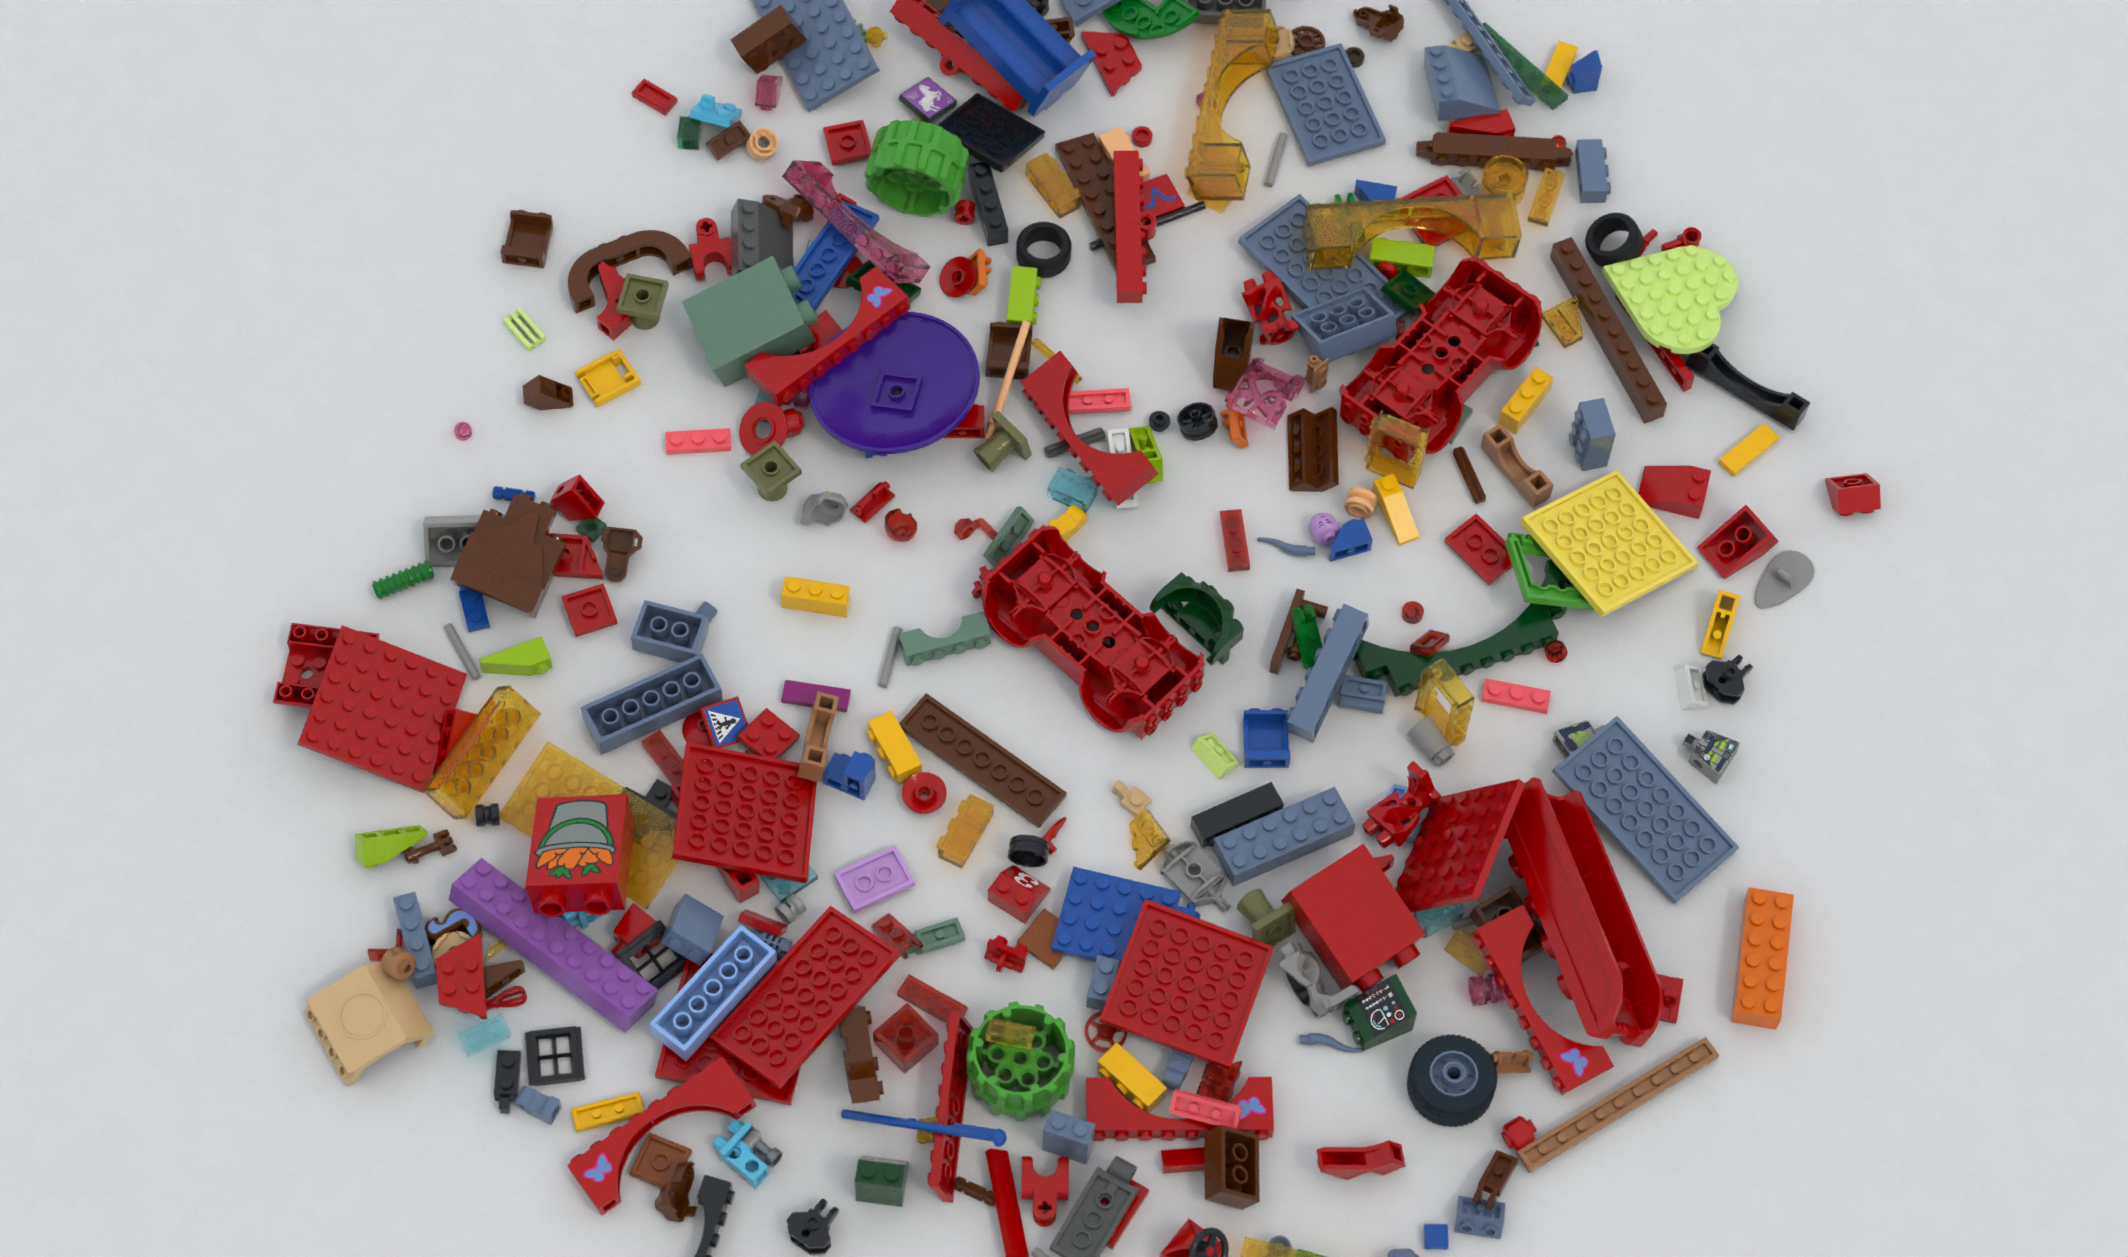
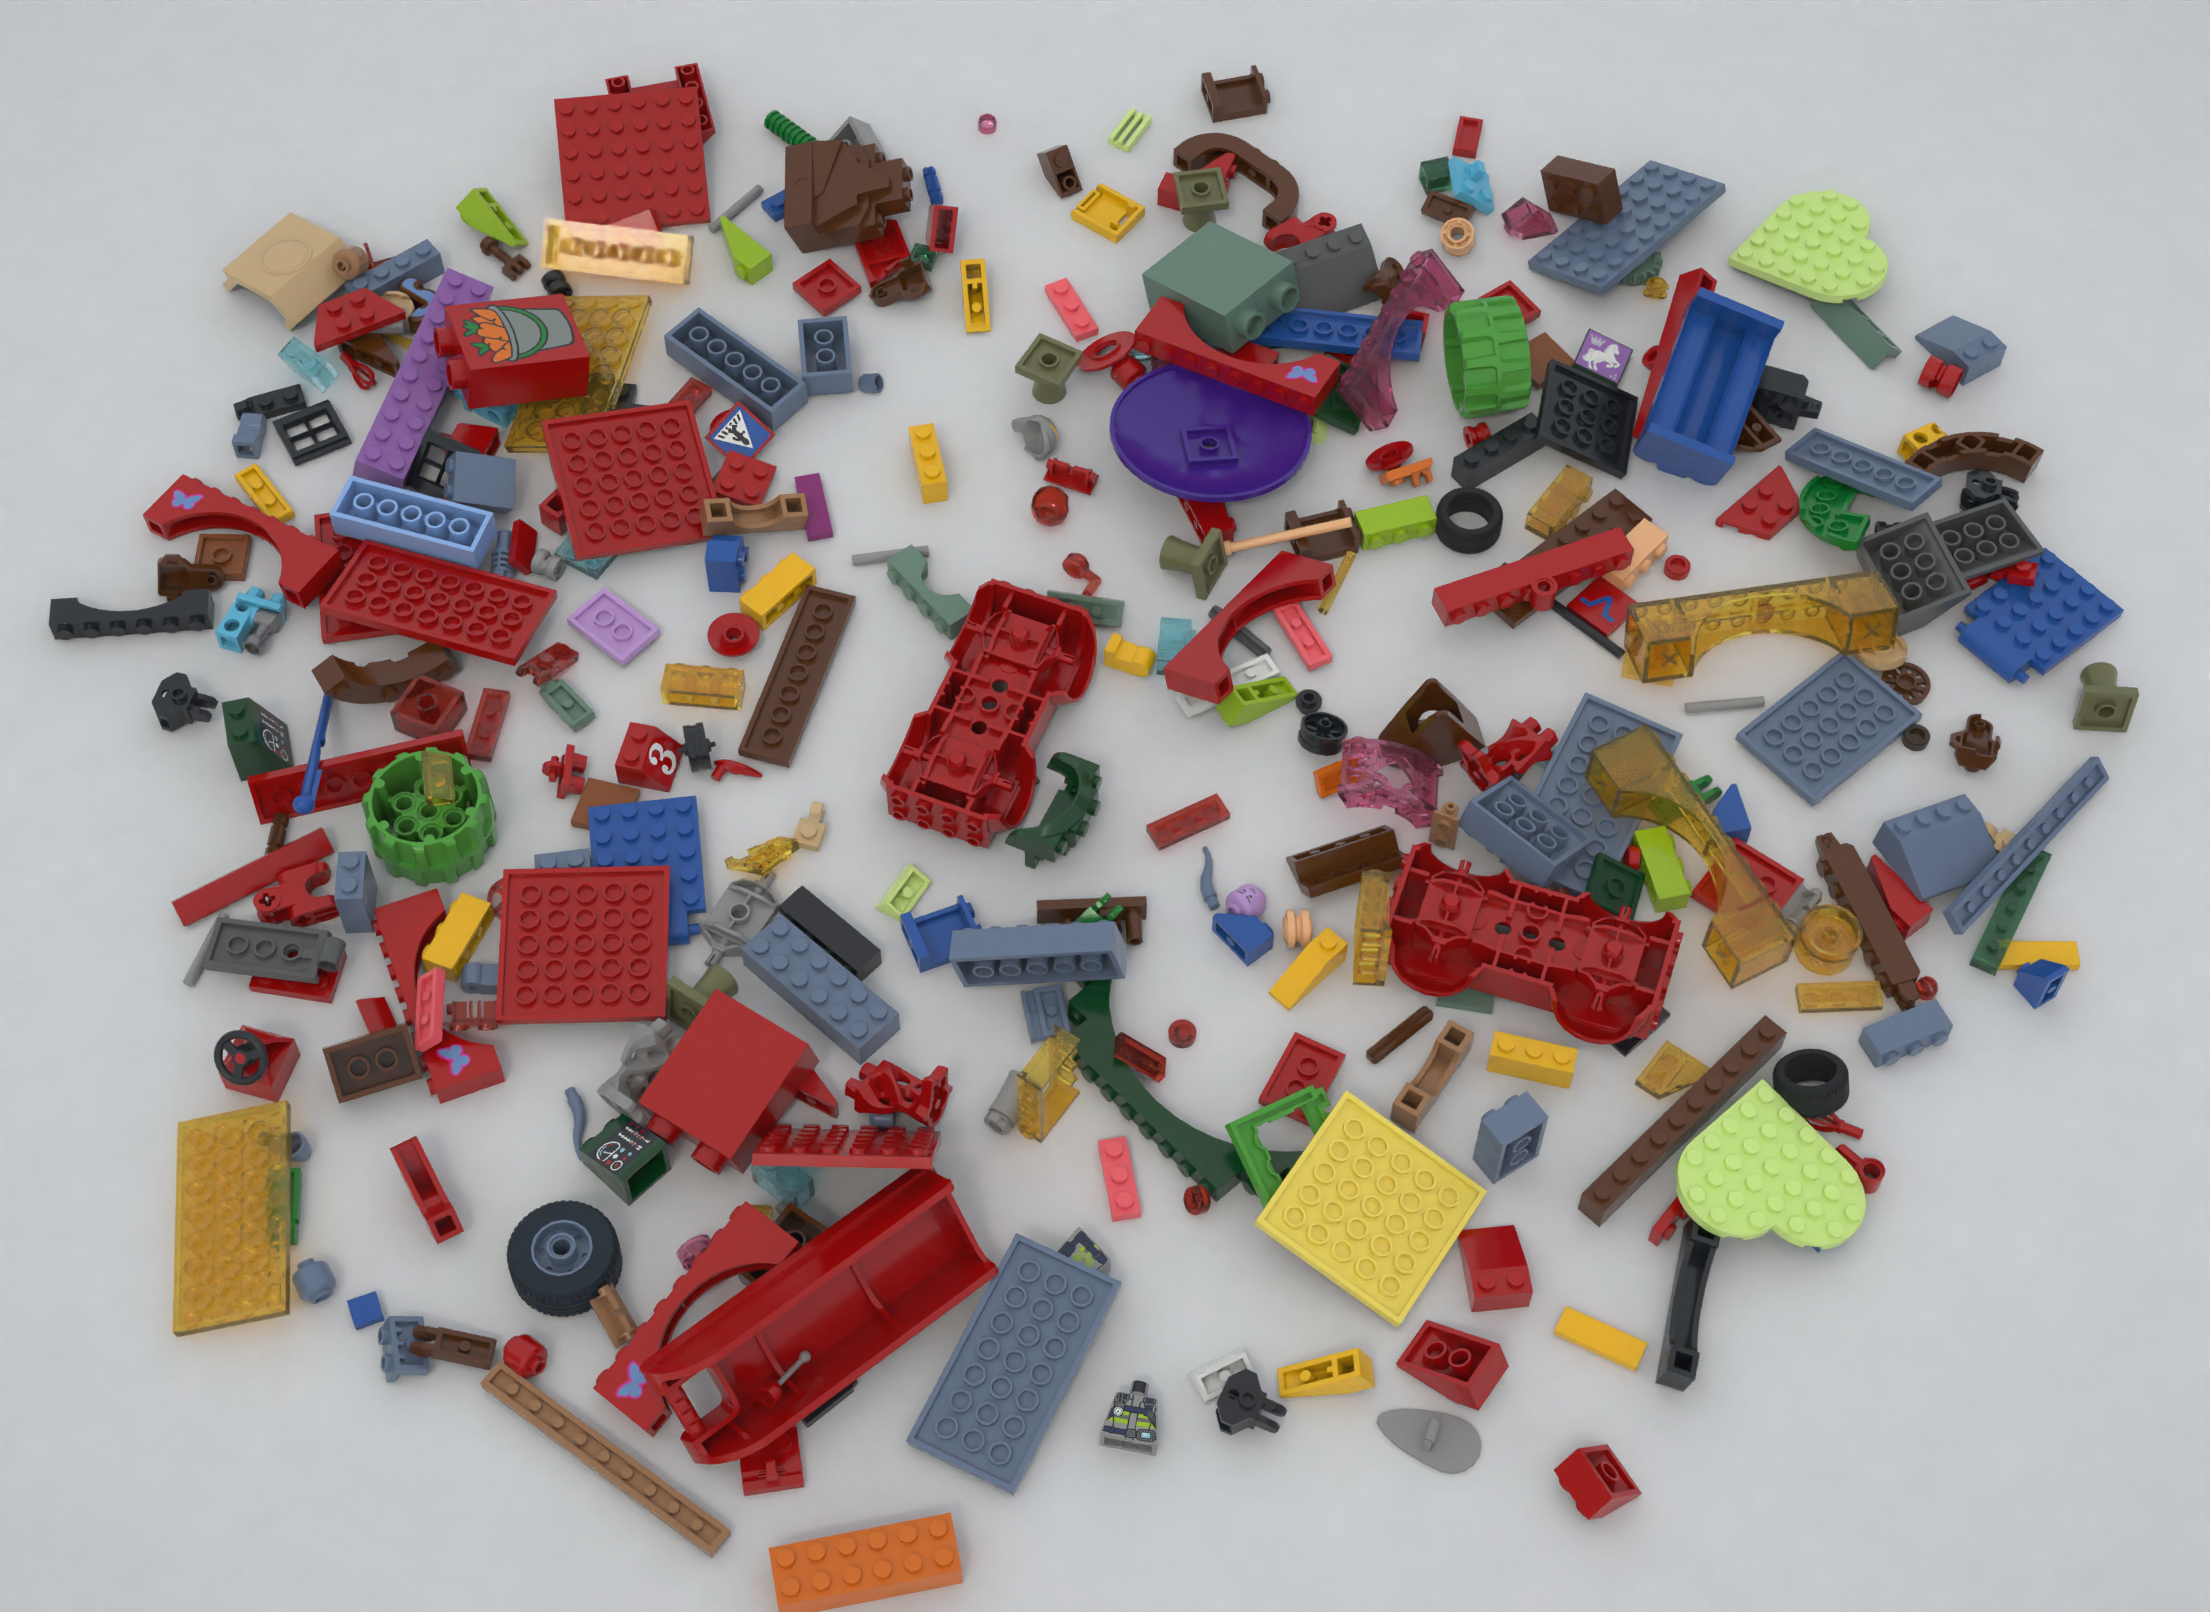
camera: 70 degrees right, 5 degrees down
(653, 503) = (975, 295): none -> yellow slope

